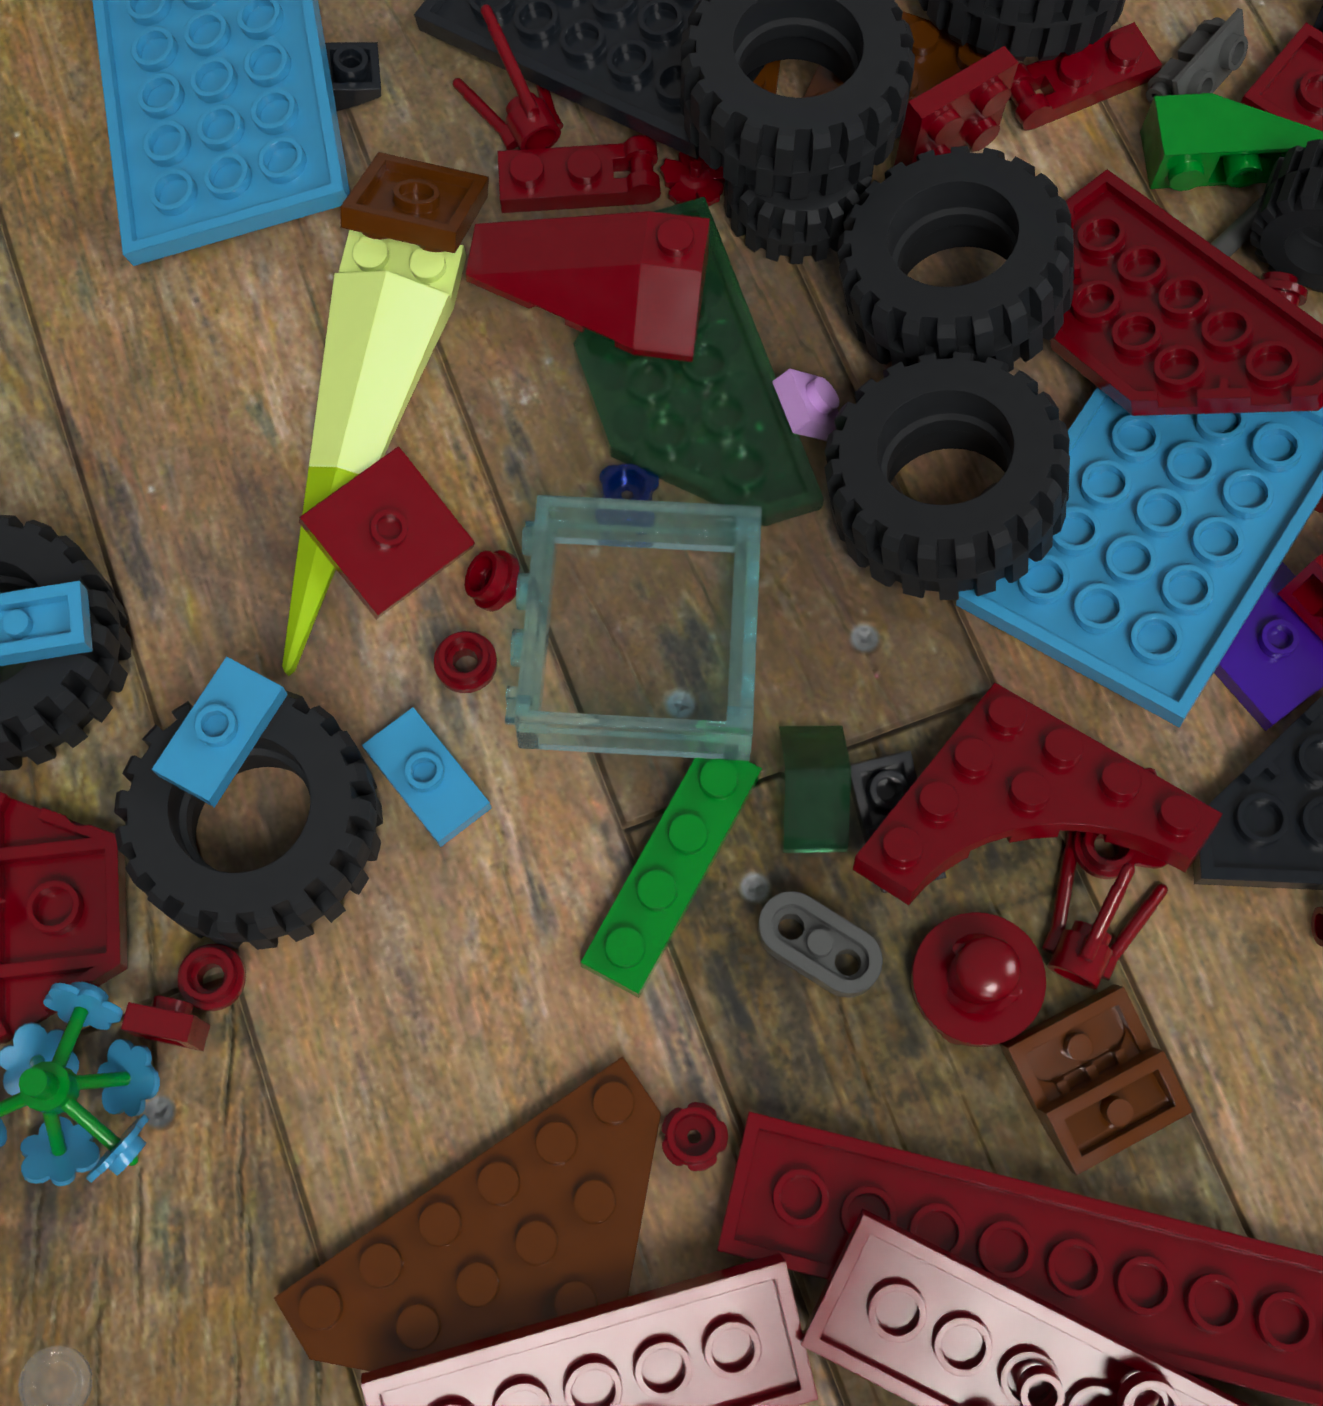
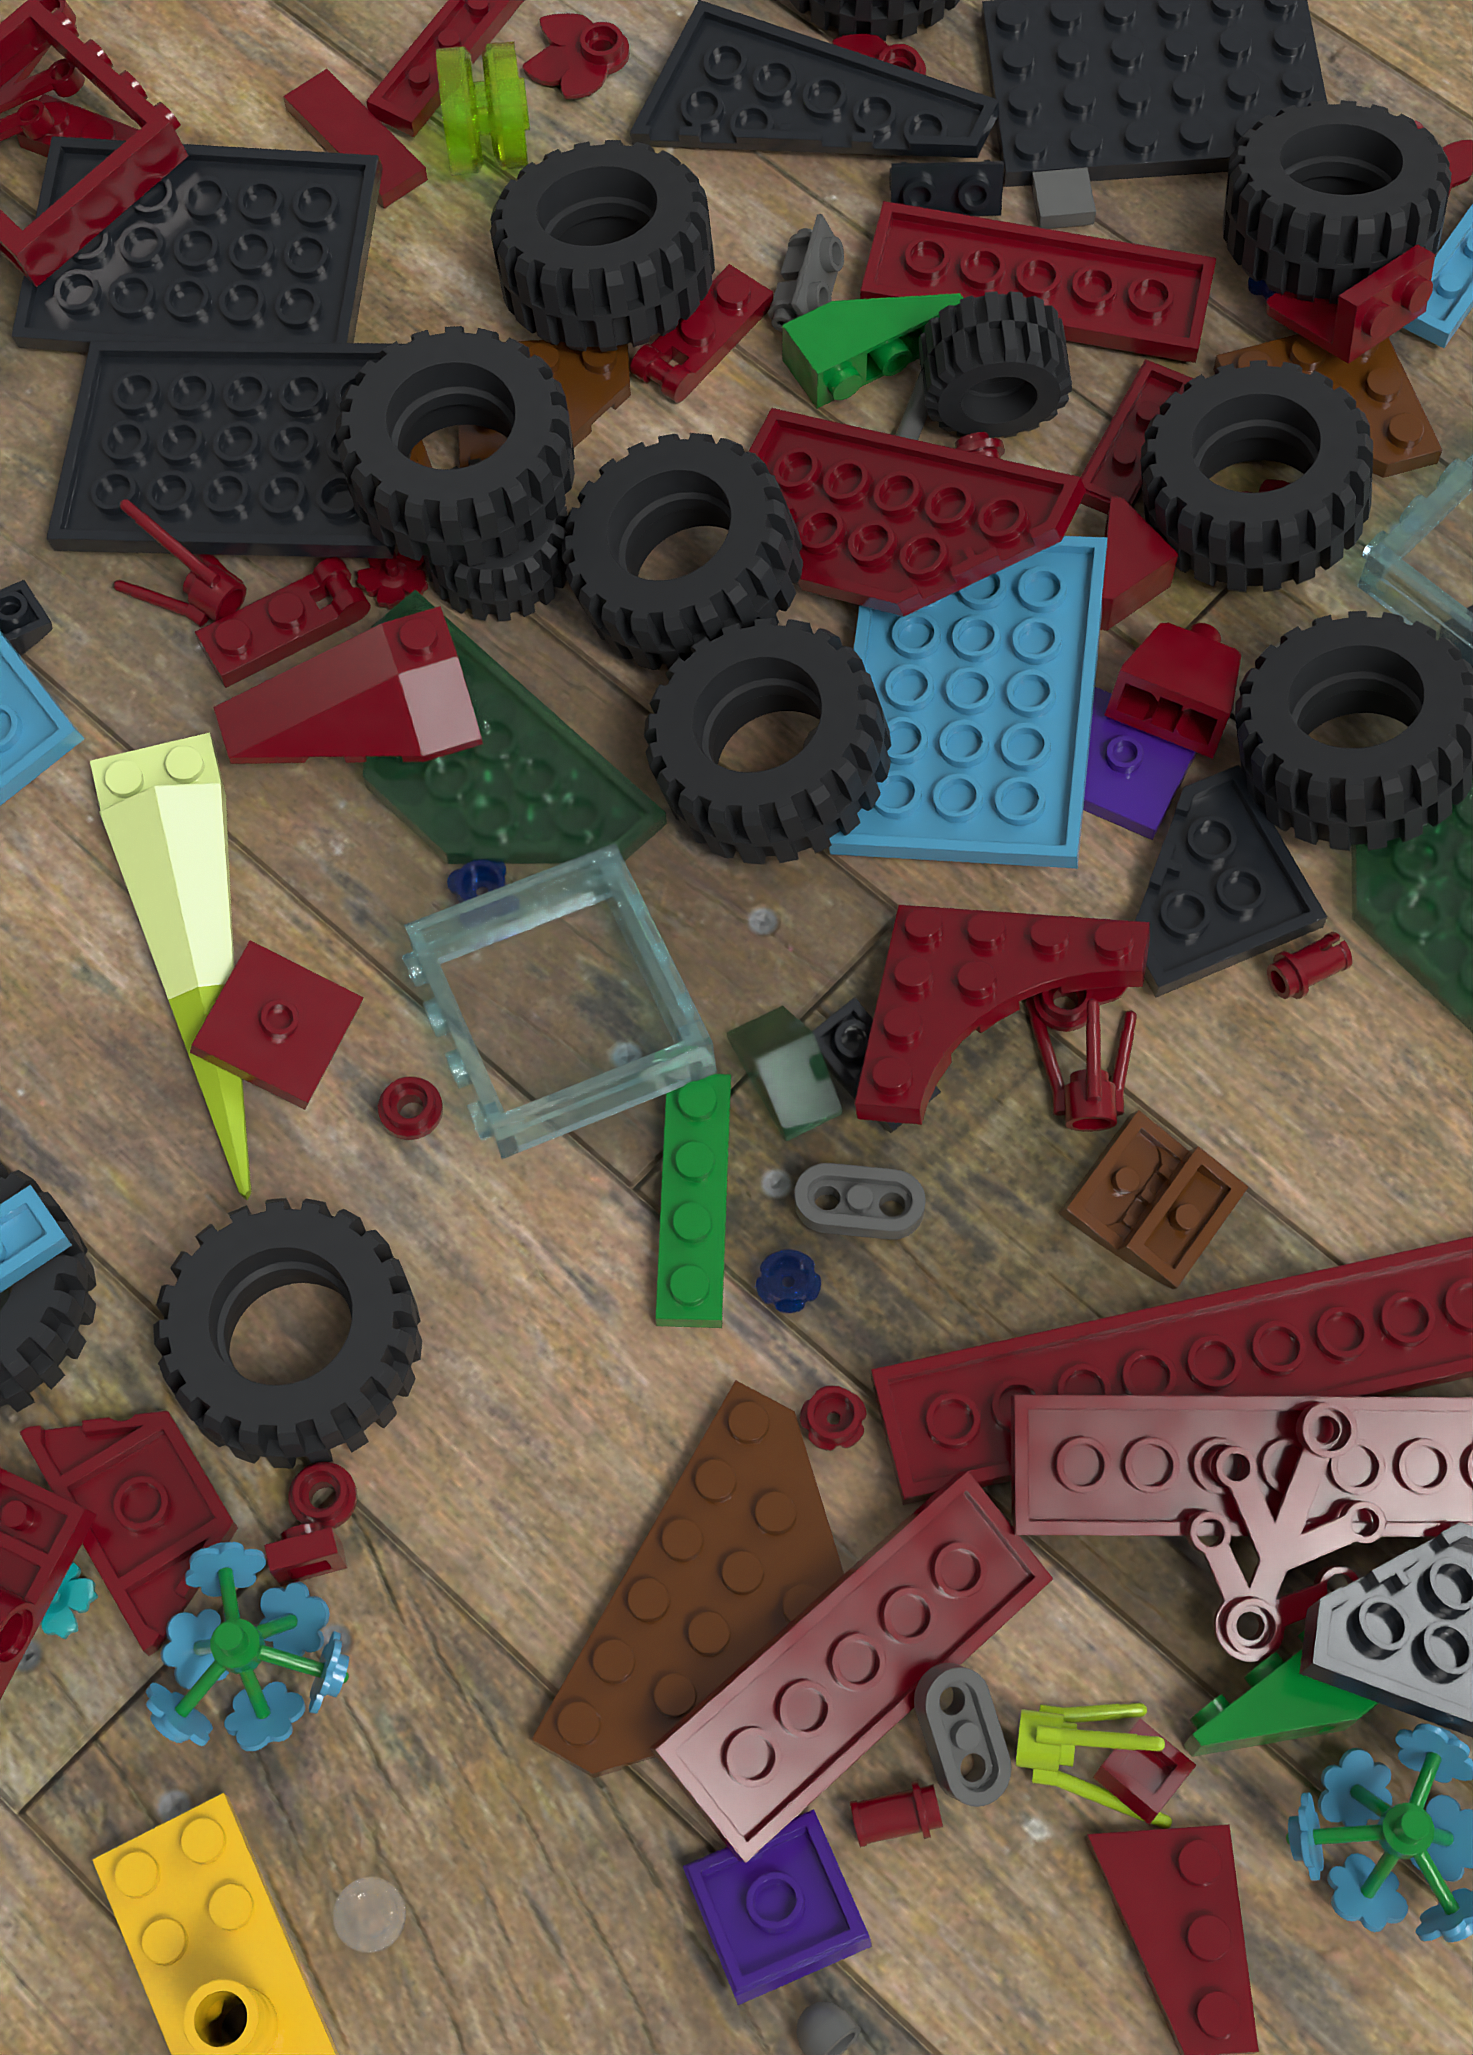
camera: 25 degrees left, 5 degrees down
(220, 731) = (231, 1259): dark azure plate -> none
(414, 203) = (143, 713): reddish brown plate -> none
(426, 777) = (430, 1226): dark azure plate -> none
(492, 579) = (398, 1022): dark red plate -> none
(717, 968) = (788, 1264): none -> clear blue plate
(807, 403) = (609, 734): lavender plate -> none
(959, 110) = (614, 414): dark red plate -> none
(978, 979) = (1012, 1165): dark red plate -> none

